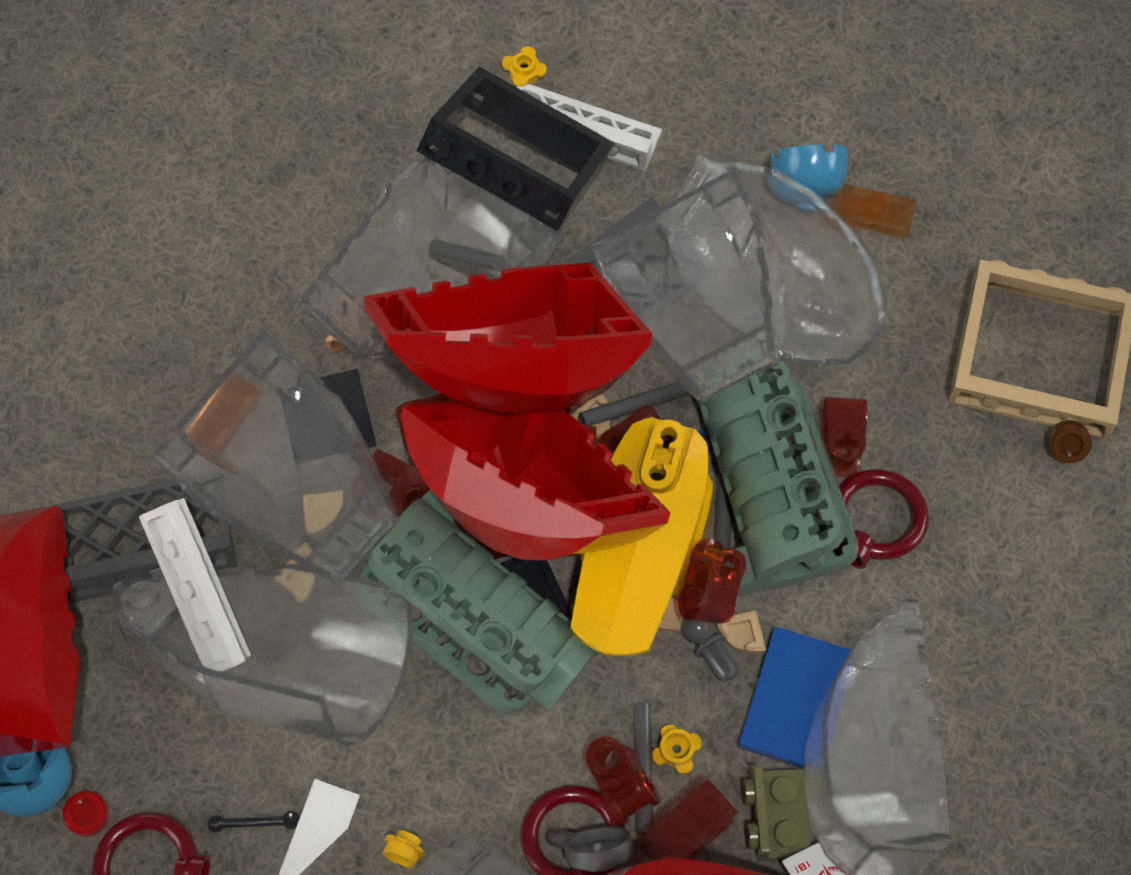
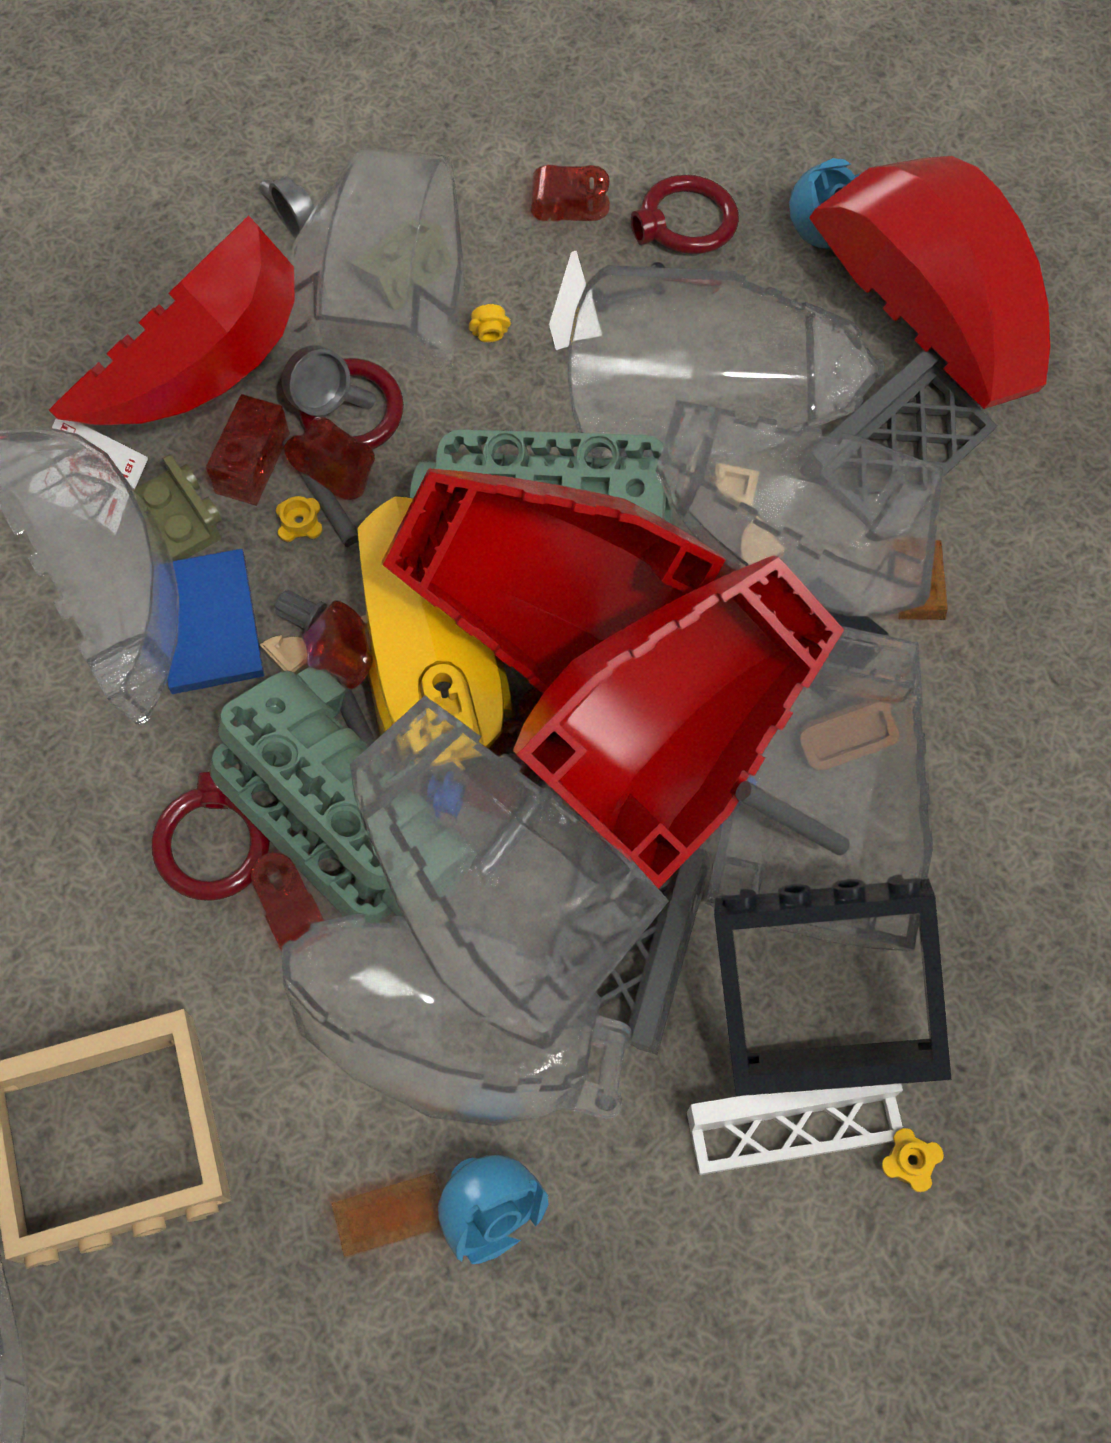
camera: 150 degrees right, 0 degrees up
(85, 813) = (766, 226): red tile -> none
(195, 586) = (807, 372): white fence -> none
(1069, 441) = (29, 1033): reddish brown tile -> none

